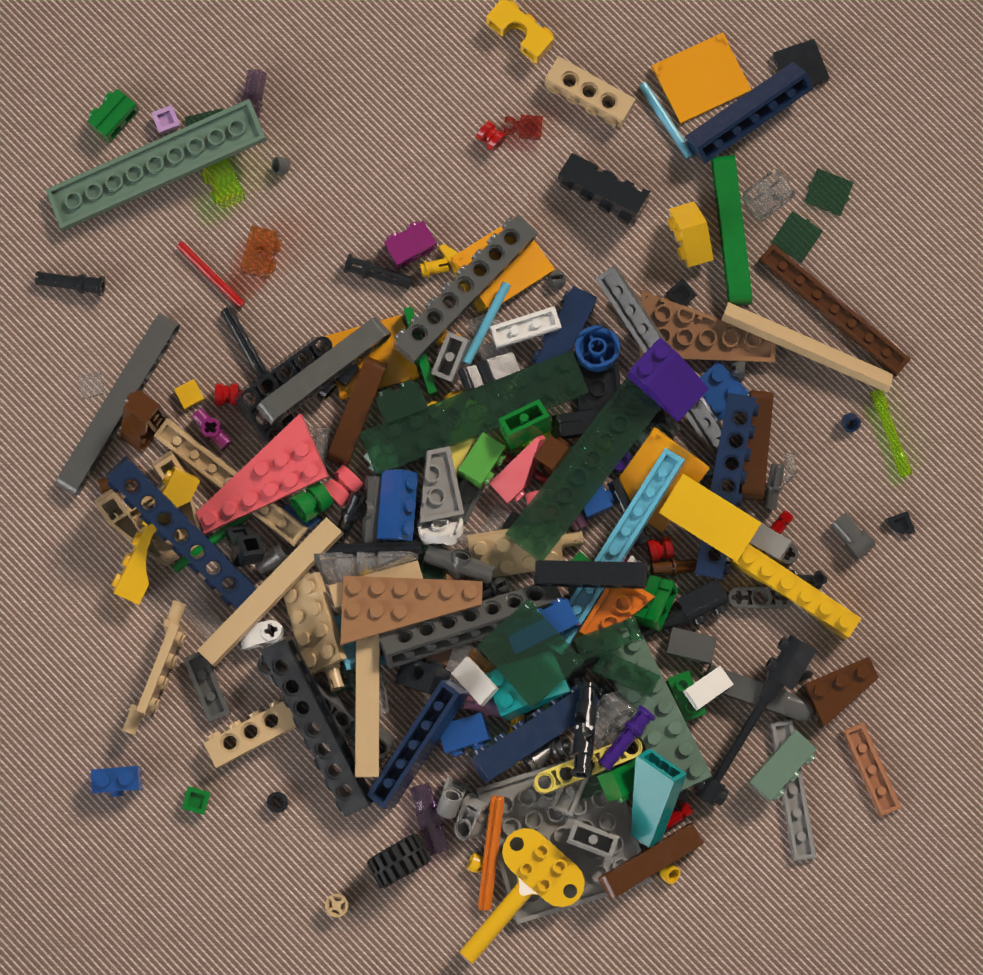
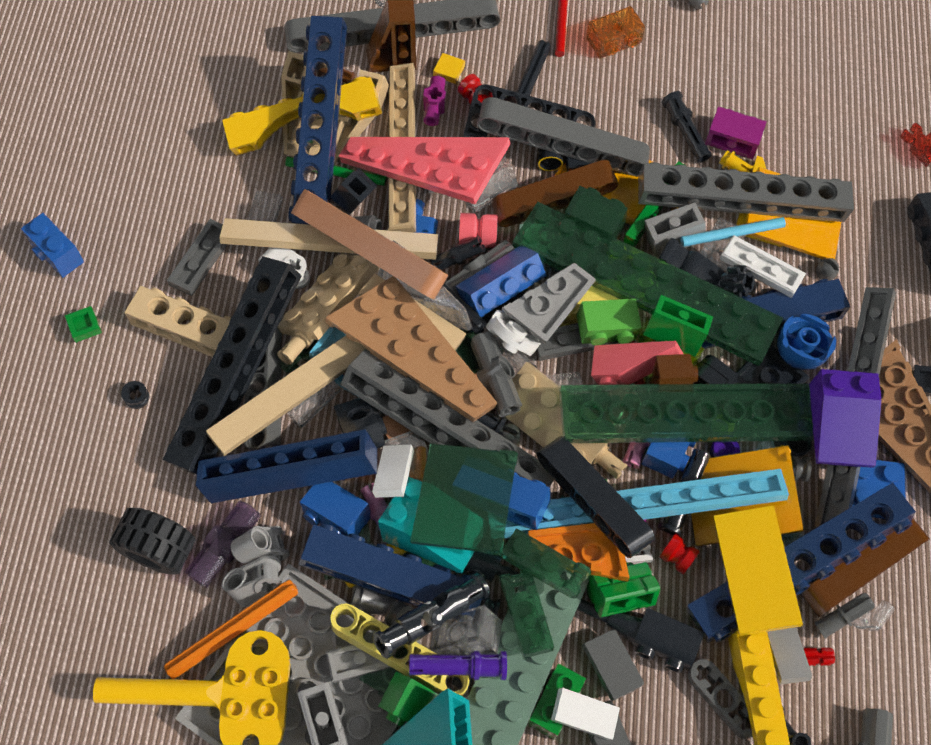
camera: 50 degrees right, 15 degrees down
(158, 677) = (181, 203): tan plate -> none
(306, 574) = (370, 244): none -> nougat beam
(310, 502) = (441, 211): green wheel -> none
(336, 907) = (64, 517): tan wheel -> none
(475, 863) = (210, 623): yellow hinge -> none
(490, 136) = (888, 125): red wheel -> none
(523, 354) = (737, 280): none -> black gear
(672, 567) = (673, 581): reddish brown axle -> none
(740, 369) = (916, 490): dark grey hinge -> none
(791, 560) = (792, 699): dark grey bush -> none

